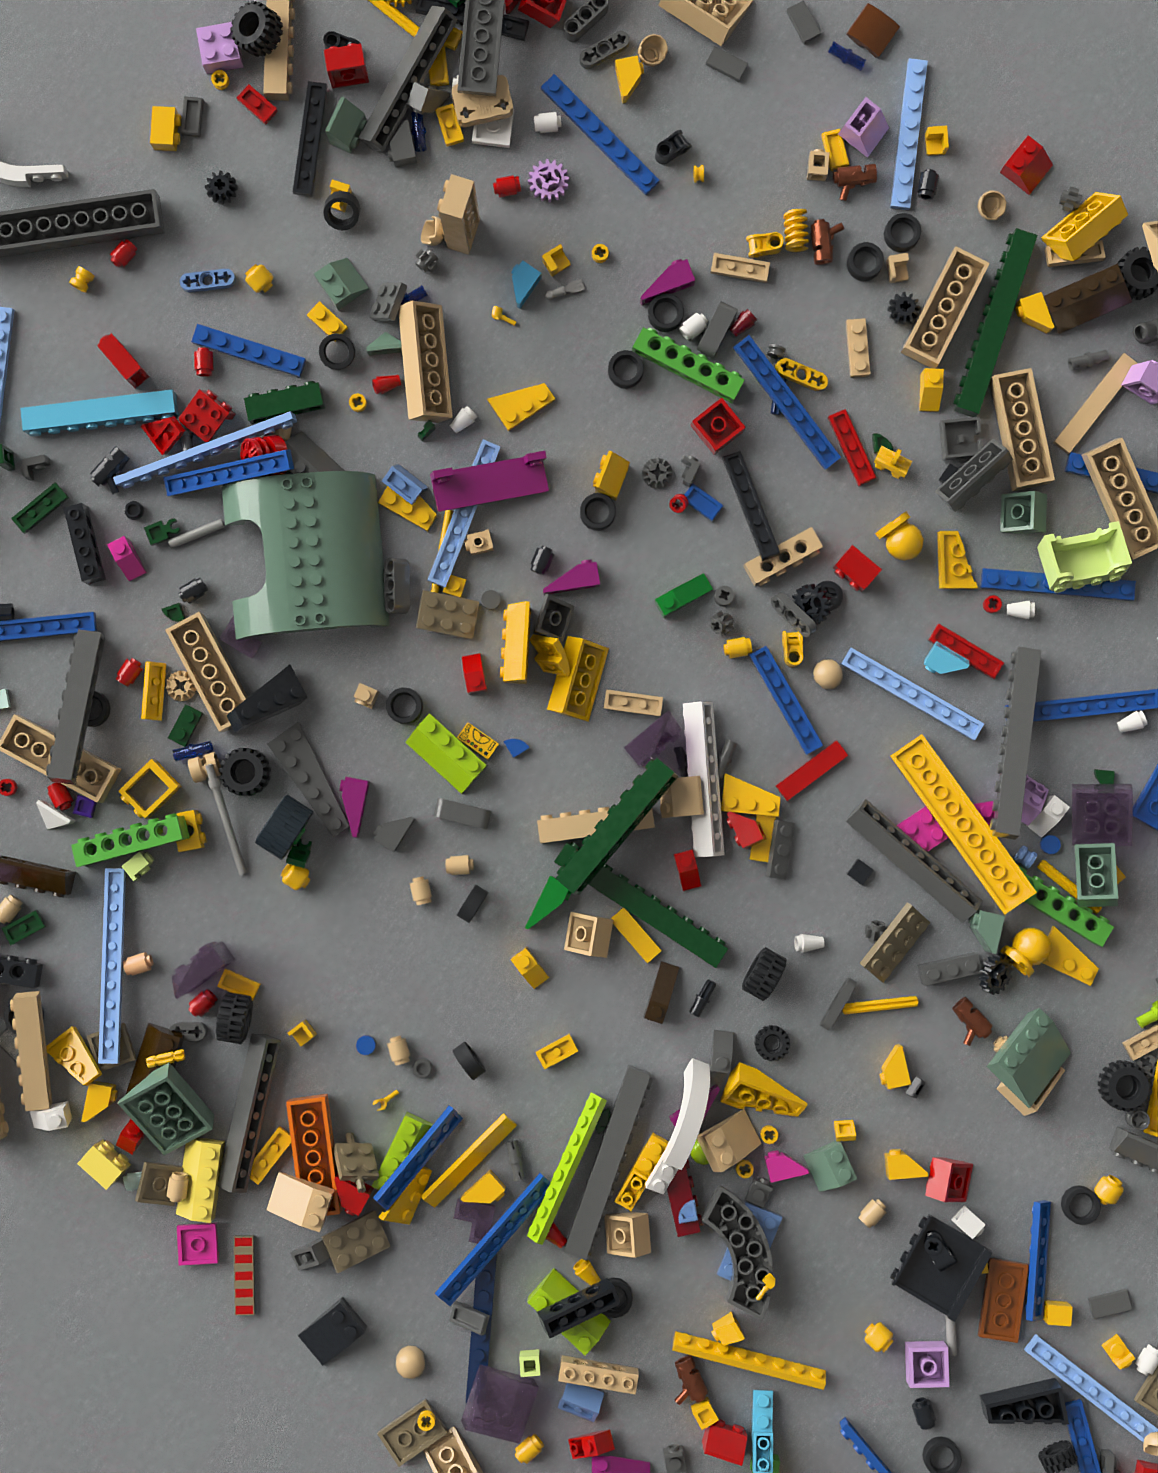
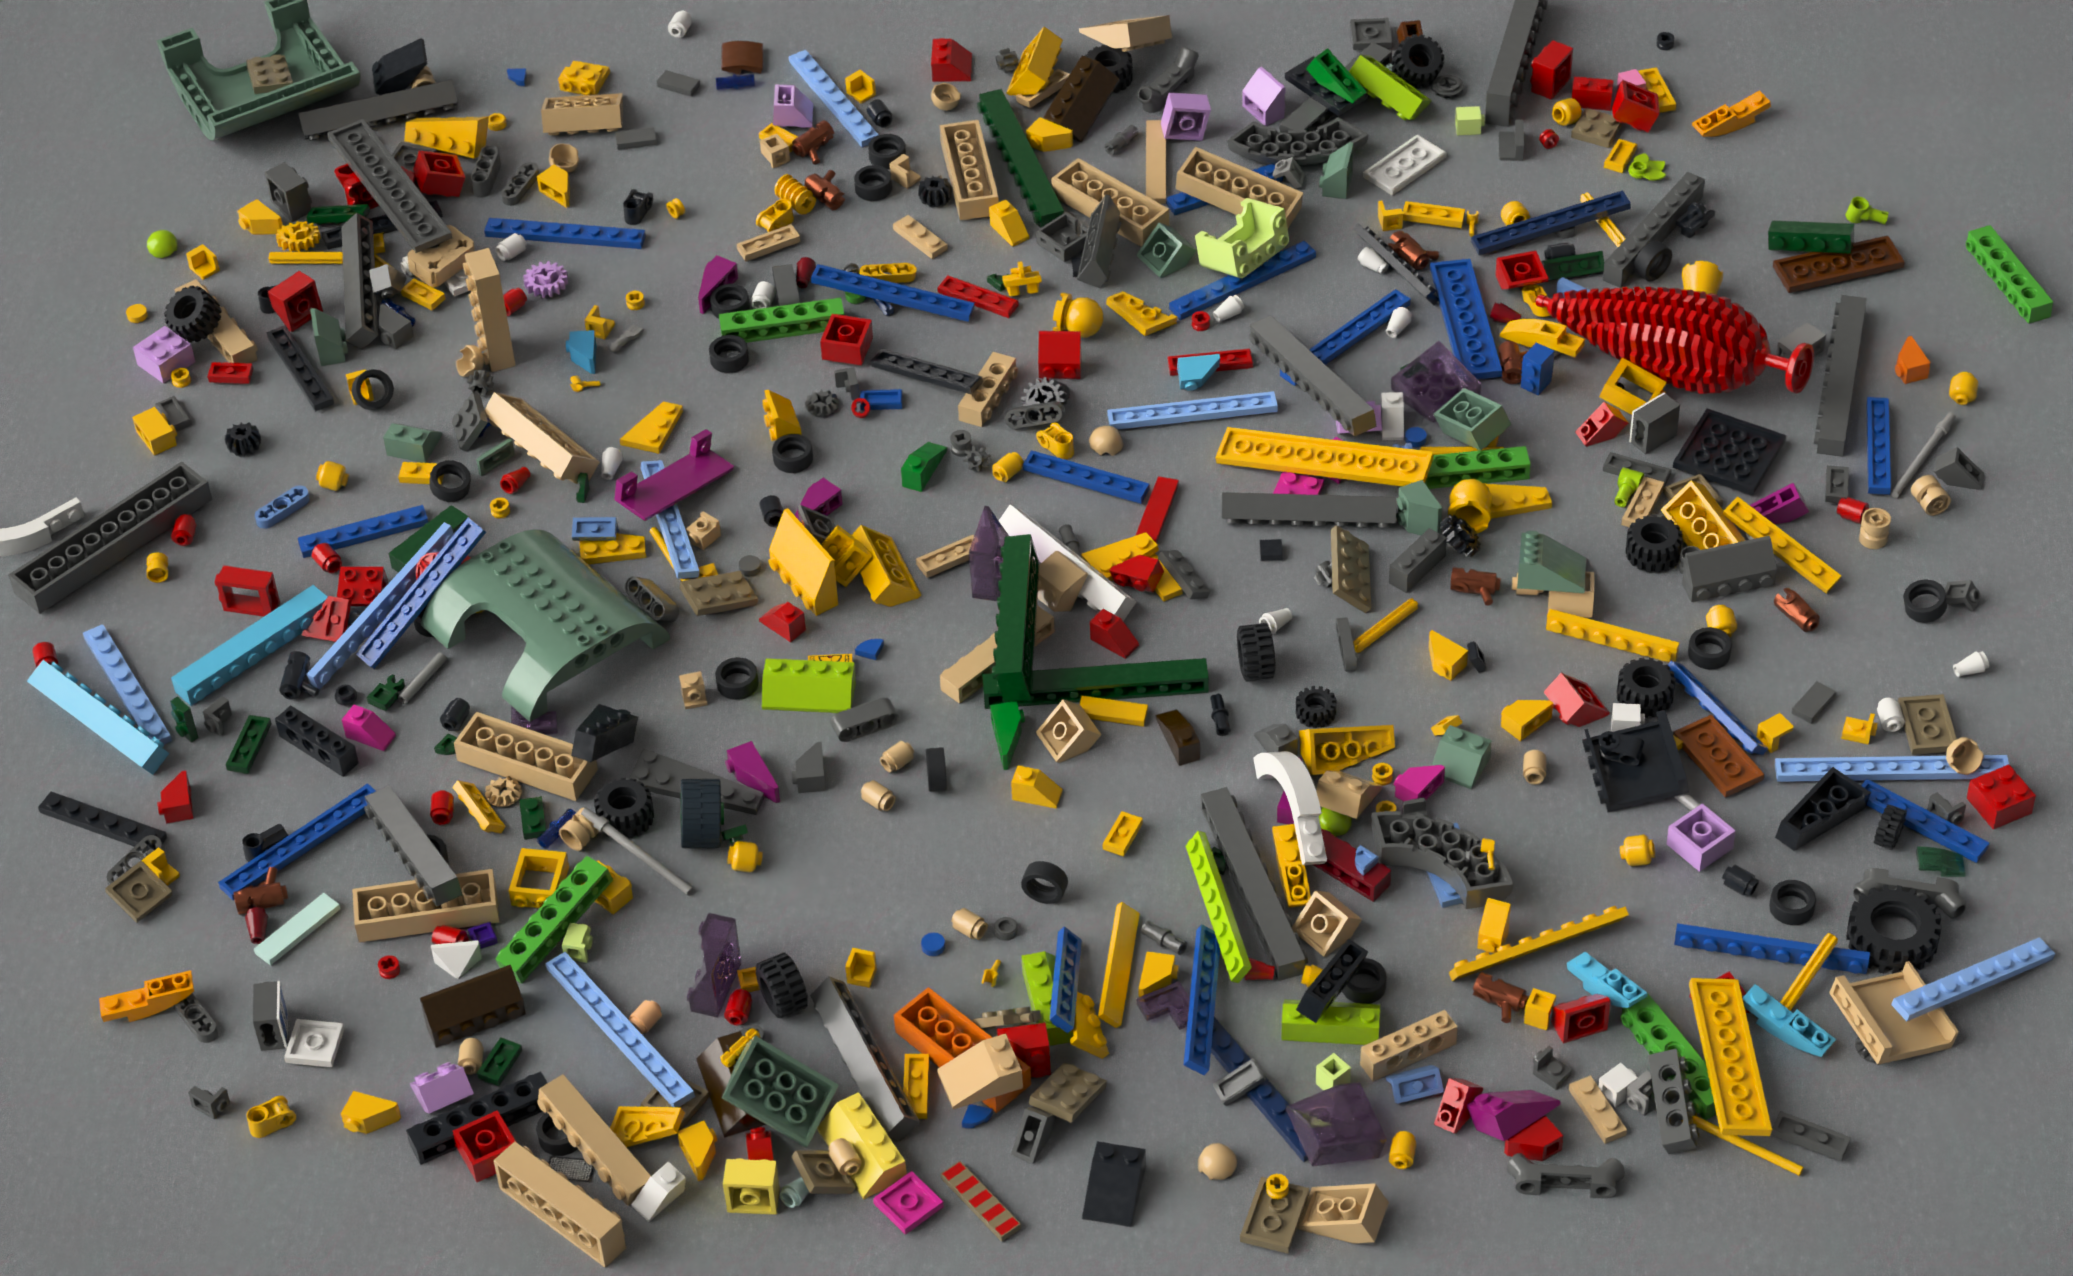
camera: 35 degrees left, 40 degrees down
(1016, 1219) = (1649, 674): none -> black tyre
(1026, 1148) = (1612, 636): none -> yellow plate

